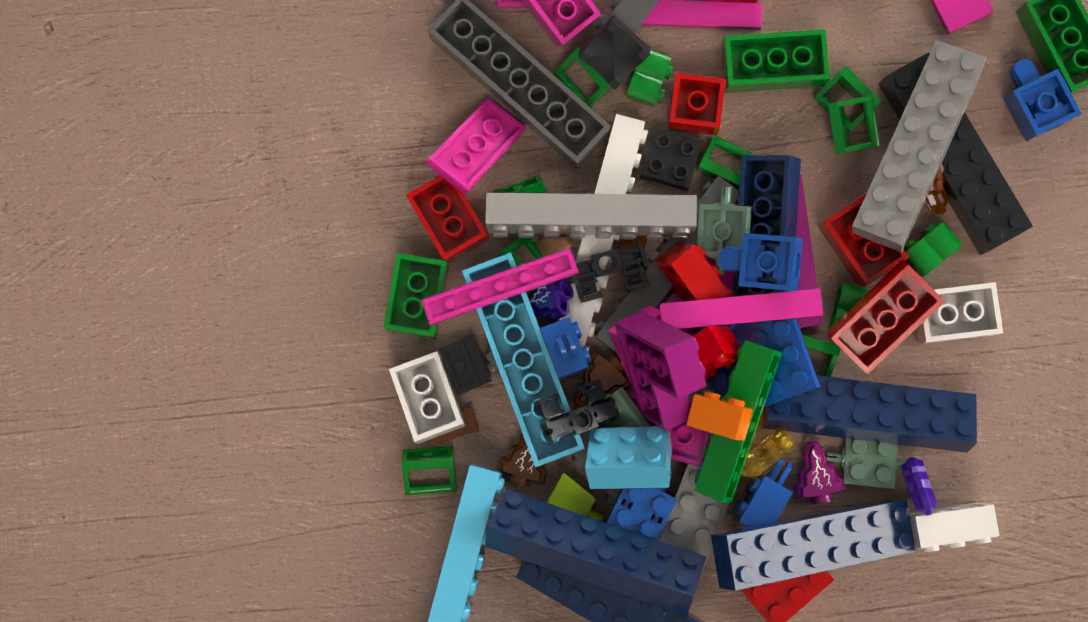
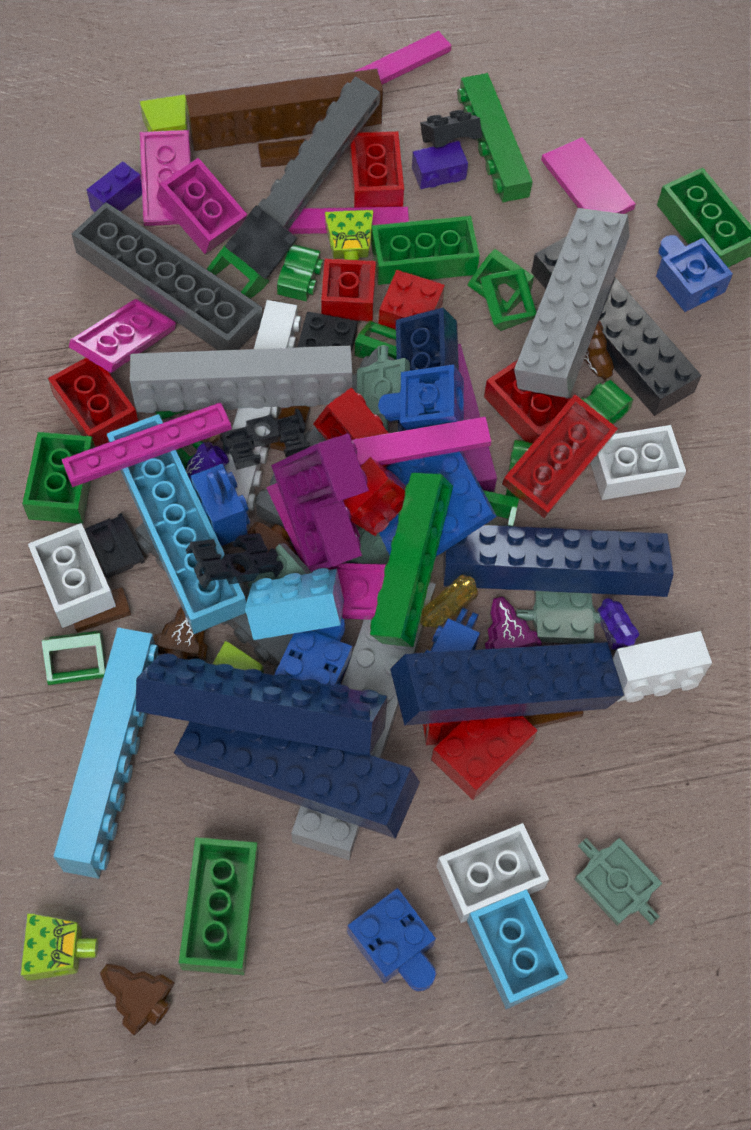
camera: 15 degrees left, 20 degrees down
(701, 40) = (349, 233): none -> lime torso
(719, 417) = (390, 546): orange brick -> none
(757, 123) = (408, 297): none -> red brick

